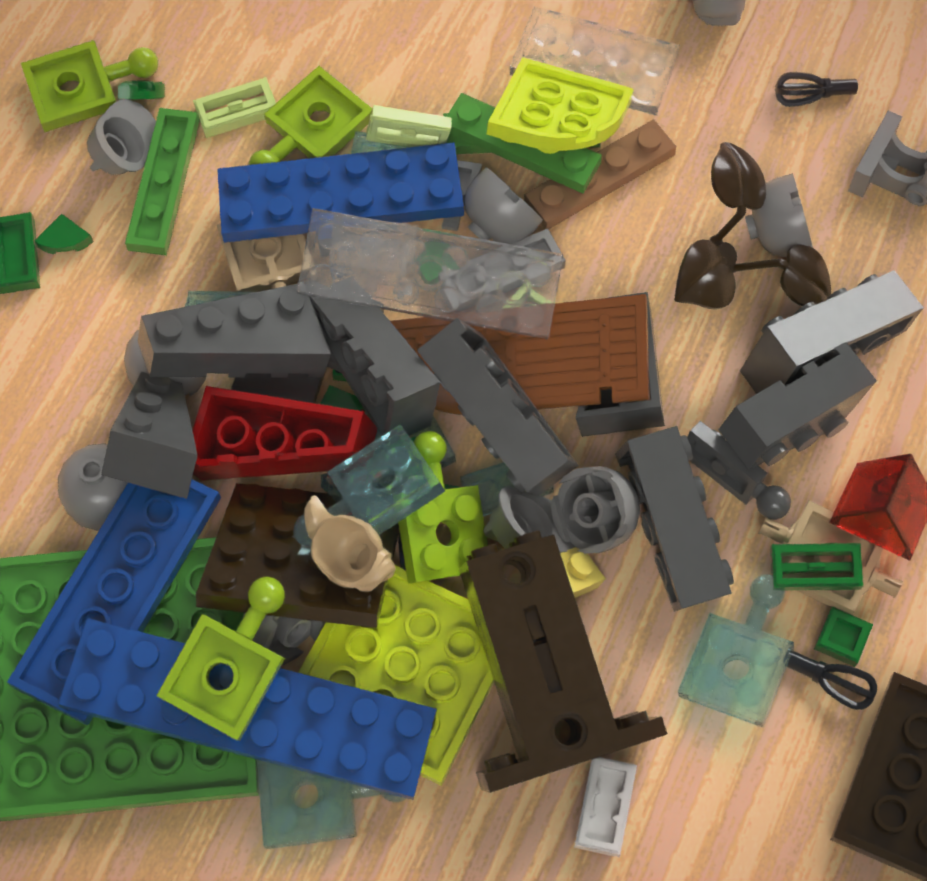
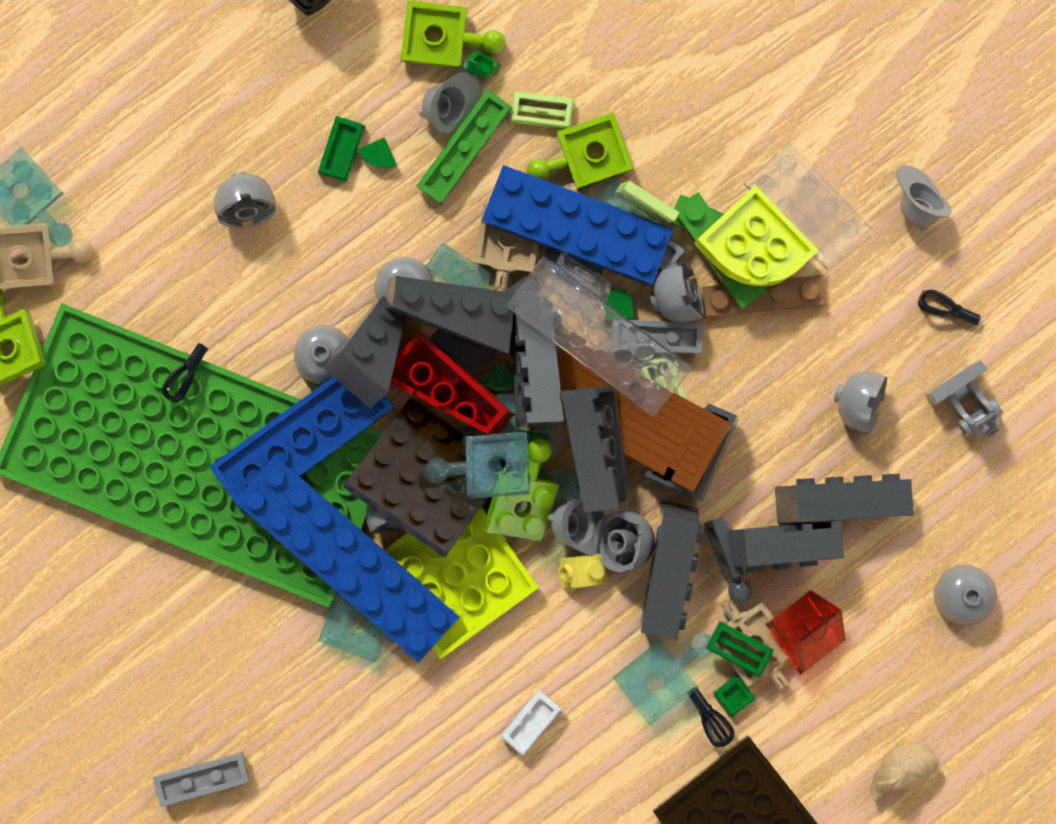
camera: 25 degrees right, 20 degrees up
(216, 644) = (358, 539): lime plate -> none
(347, 548) = (449, 503): tan hair -> none
(542, 664) = (533, 632): dark brown brick -> none
(709, 265) = (778, 429): dark brown plant -> none

